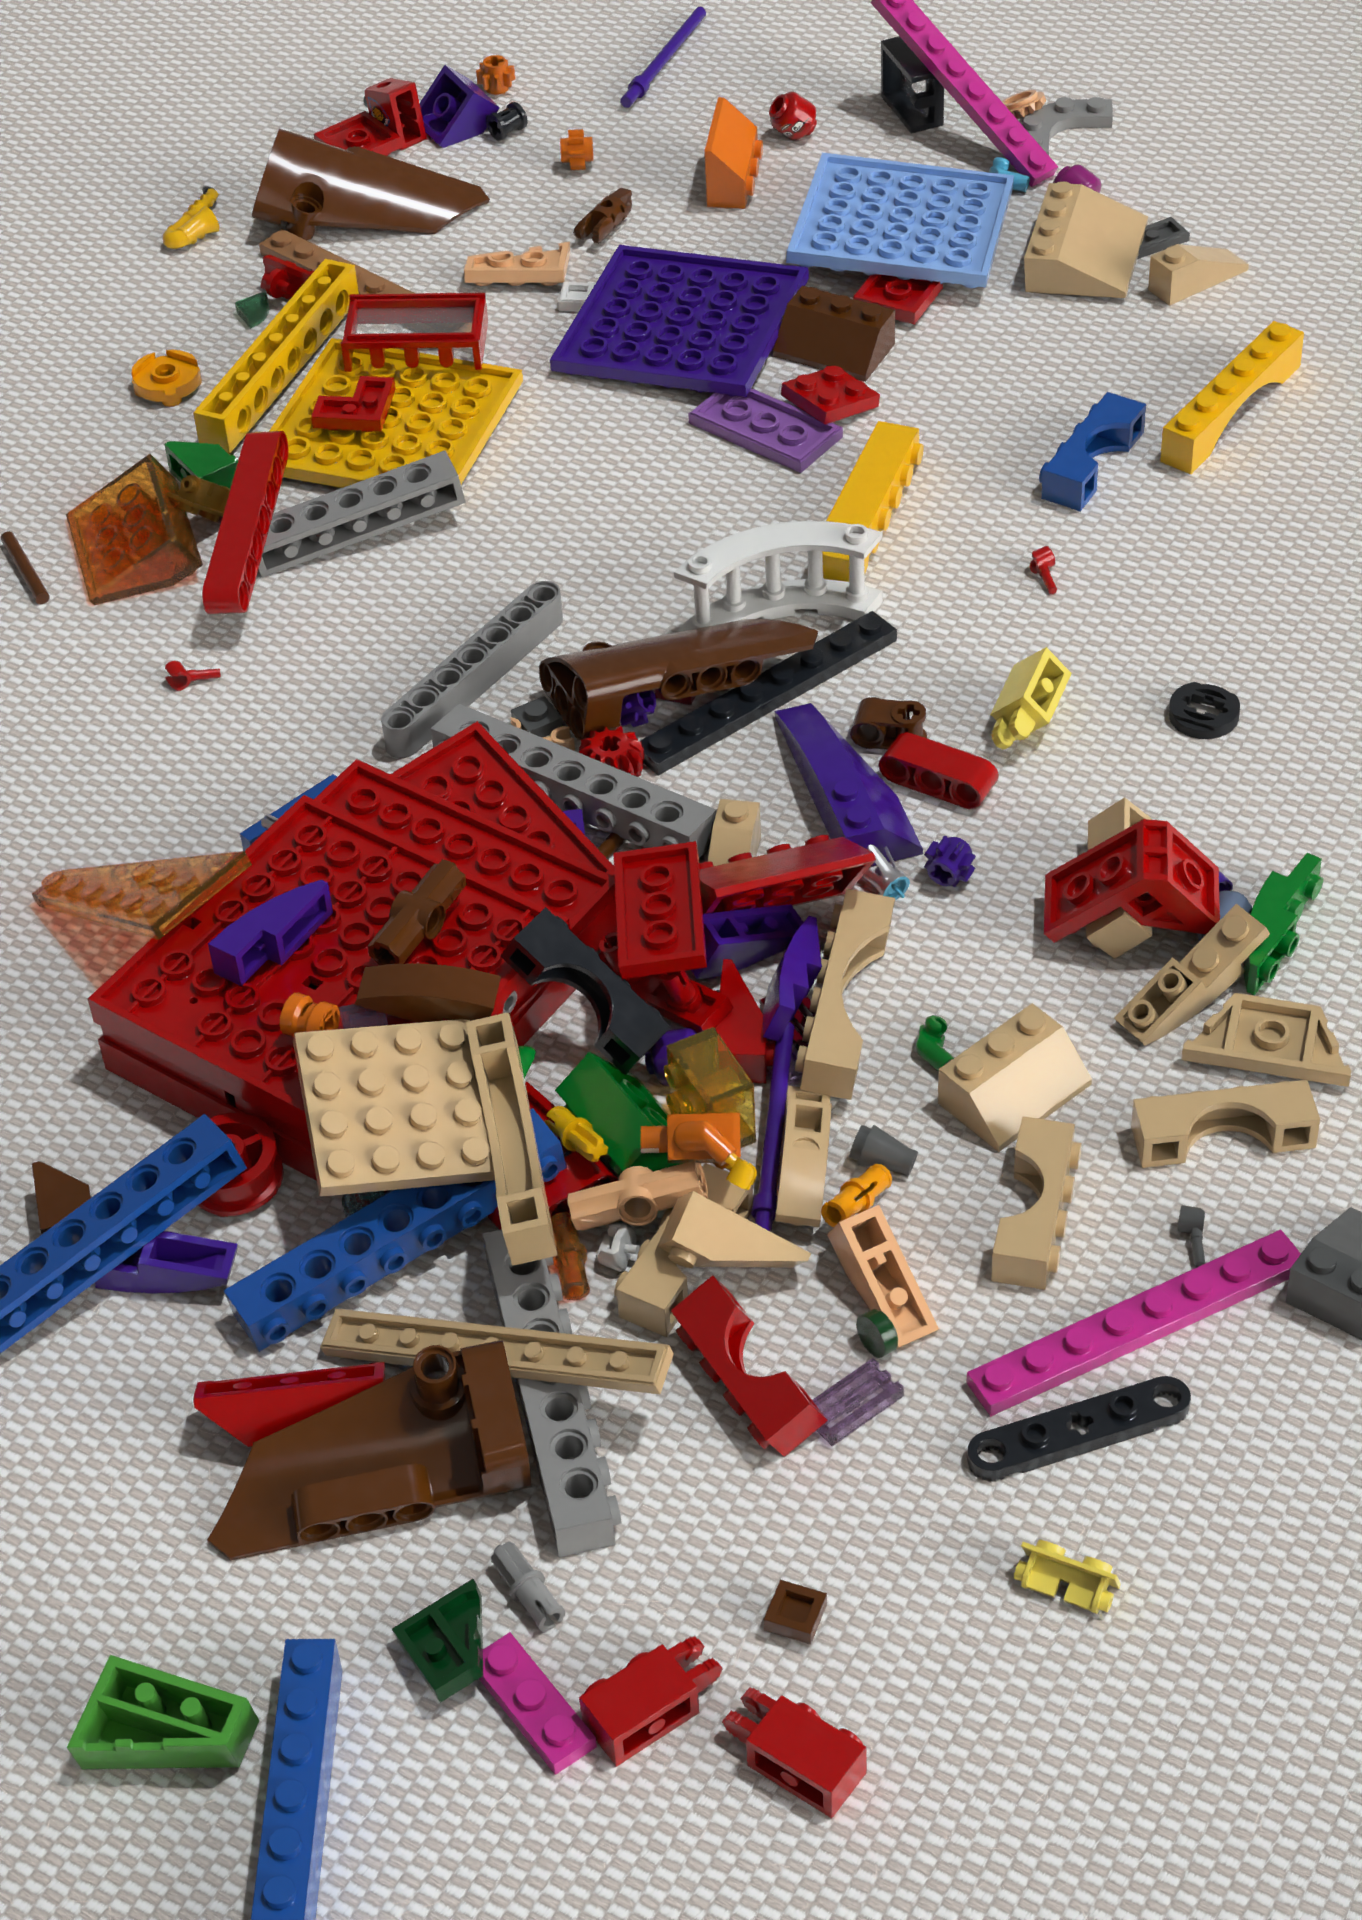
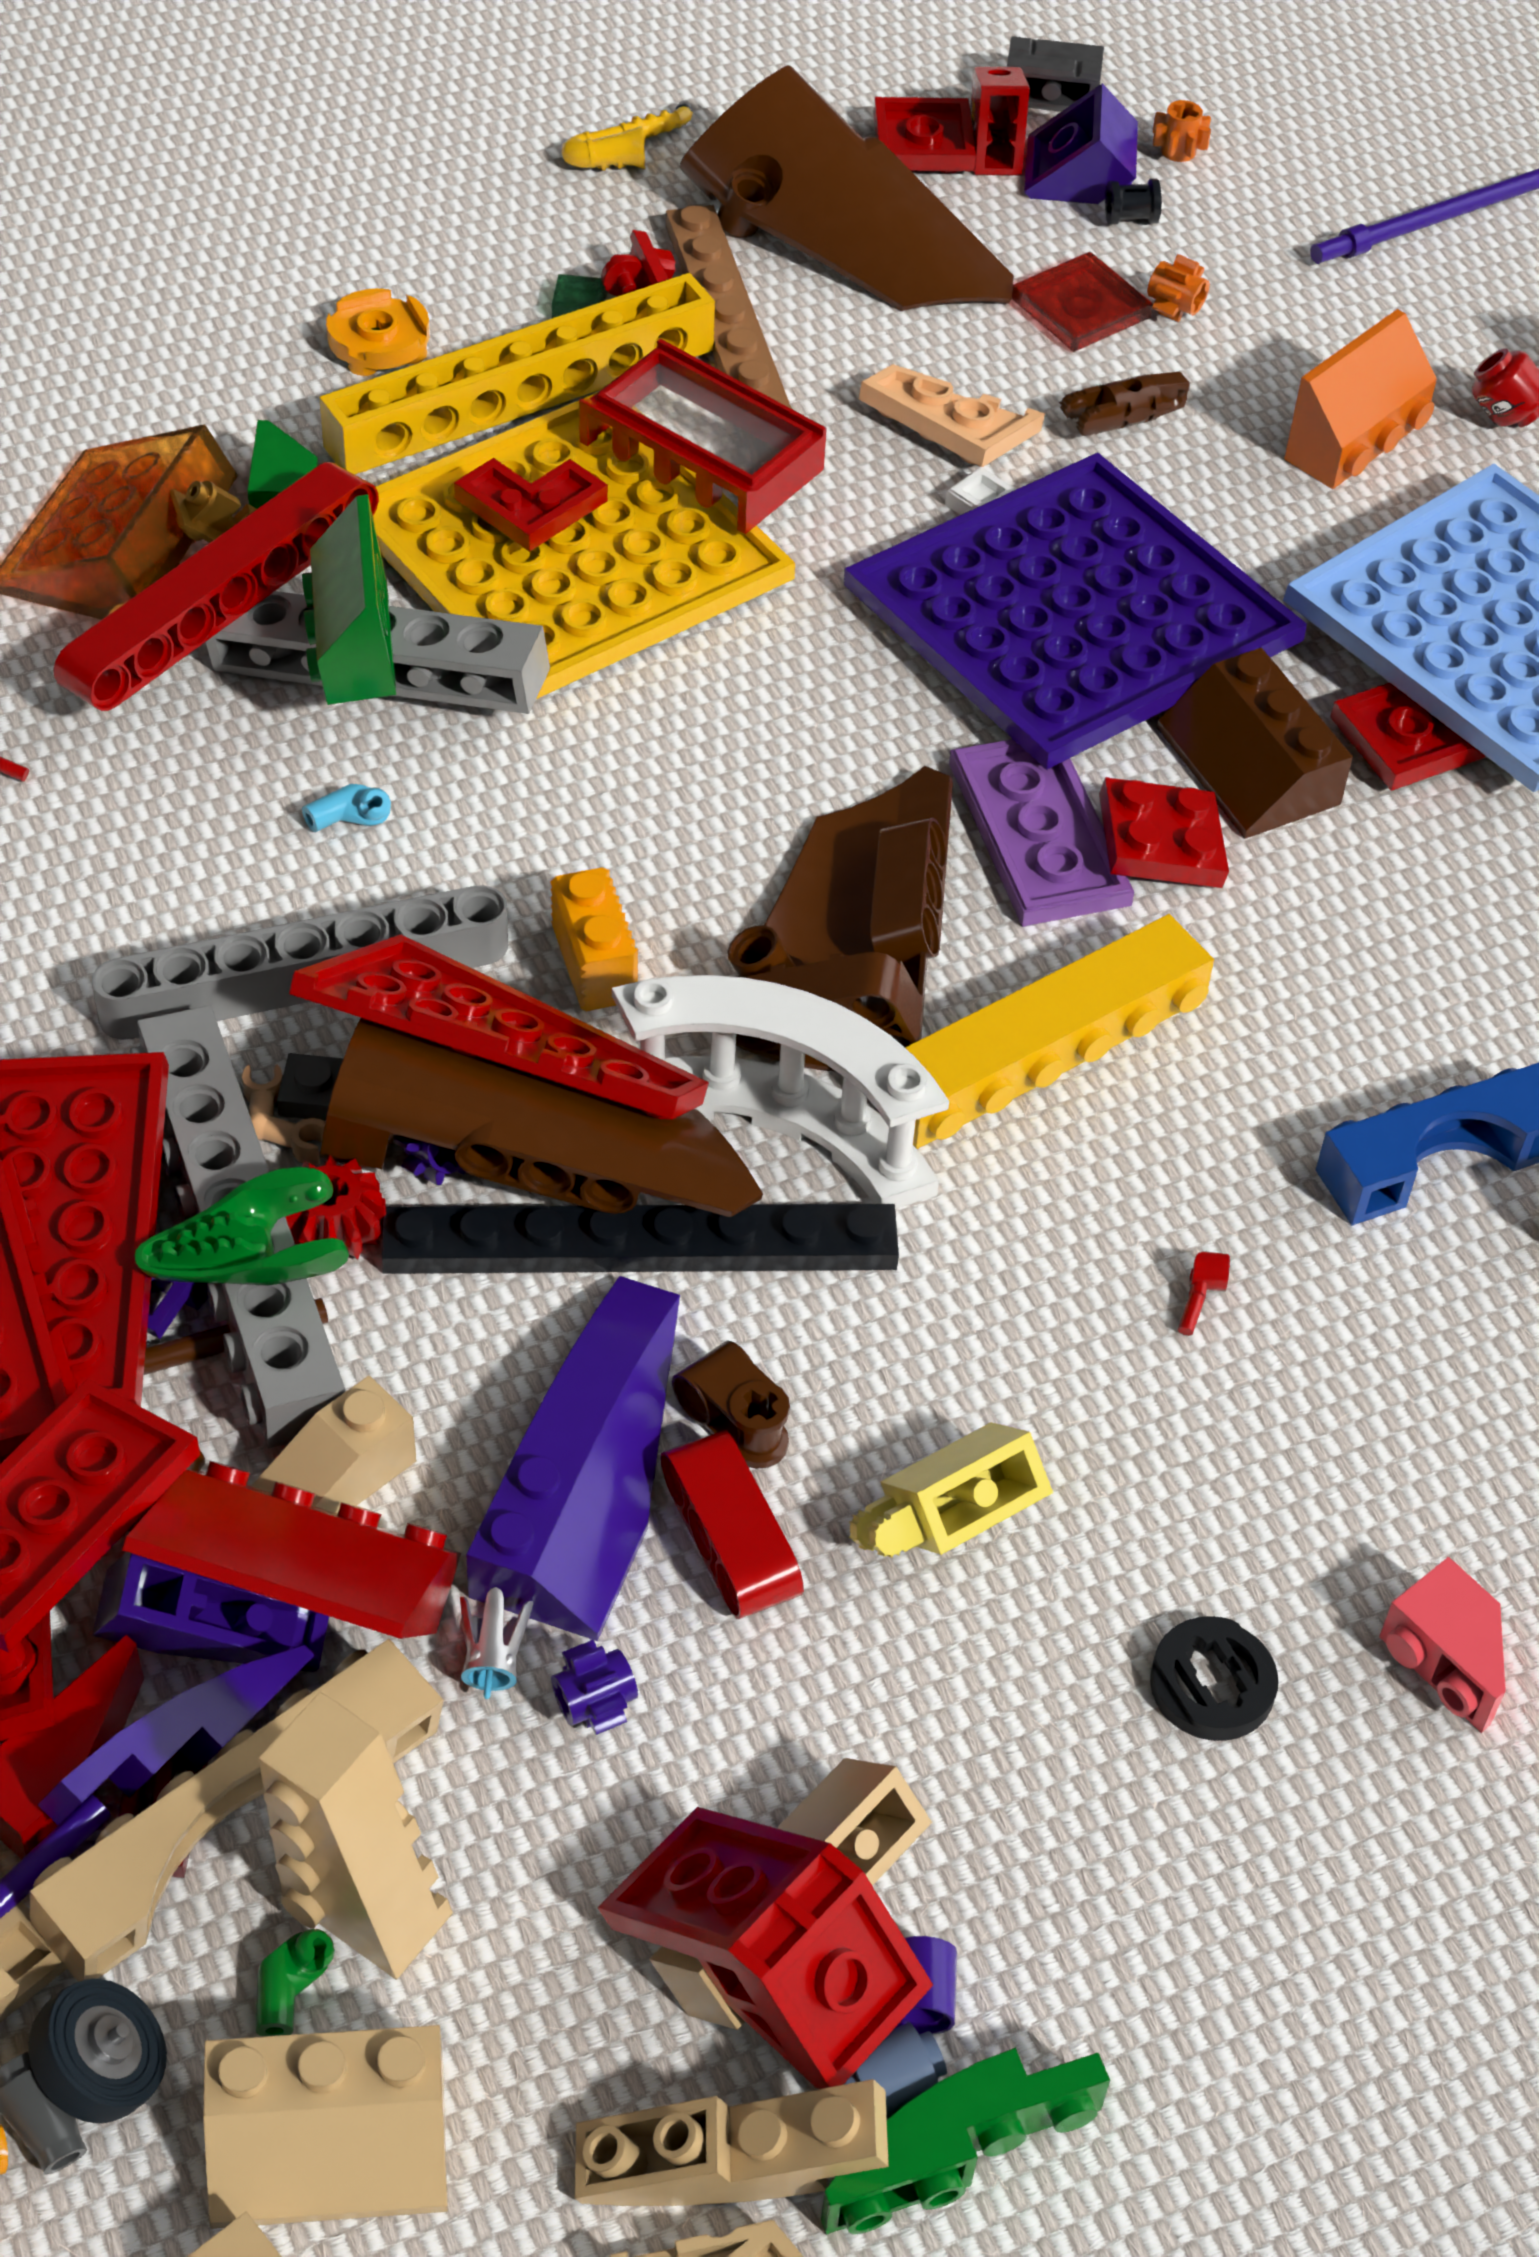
camera: 30 degrees right, 5 degrees up
(345, 485) = (349, 610): none -> green slope
(406, 67) = (1056, 70): none -> flat silver brick
(413, 593) = (349, 804): none -> medium azure arm
(528, 182) = (1082, 301): none -> clear red tile
(595, 783) = (234, 1236): none -> green animal
(609, 579) = (593, 936): none -> light orange brick
(616, 628) = (479, 1016): none -> red wing
(722, 494) = (860, 911): none -> reddish brown panel
(888, 1110) = (97, 2051): none -> black wheel
(925, 958) = (348, 1838): none -> tan wedge
(1293, 636) = (1452, 1639): none -> coral slope

